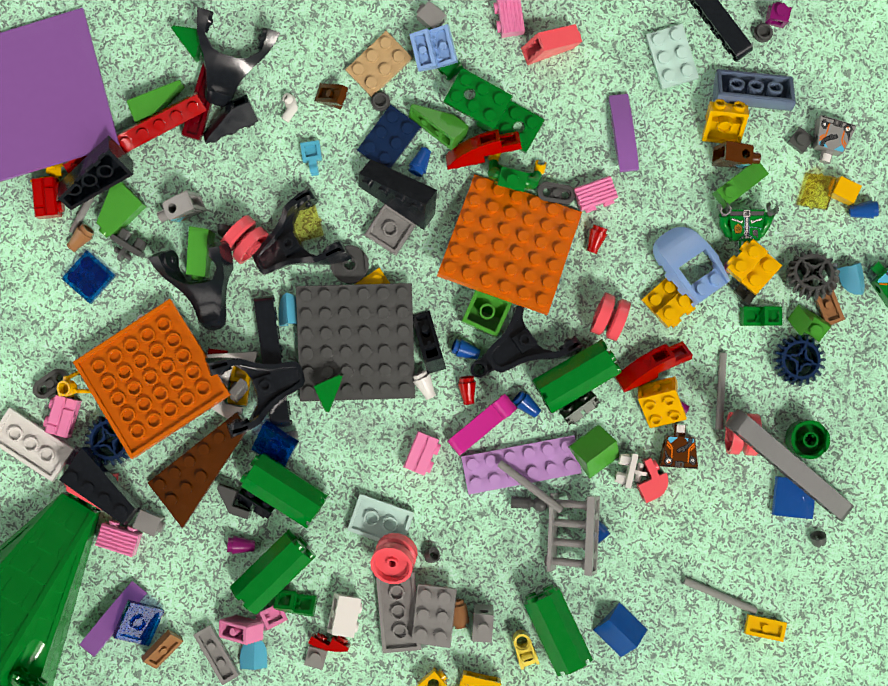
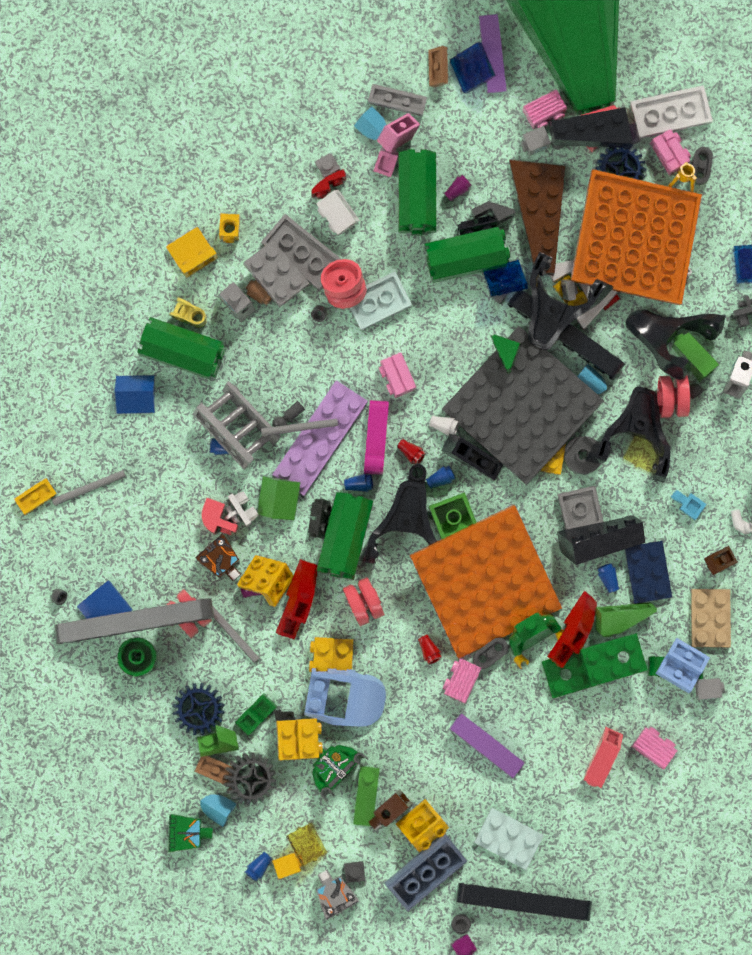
camera: 125 degrees right, 5 degrees down
(295, 603) = (378, 187): green slope -> none
(380, 101) = (681, 592): dark grey plate -> none

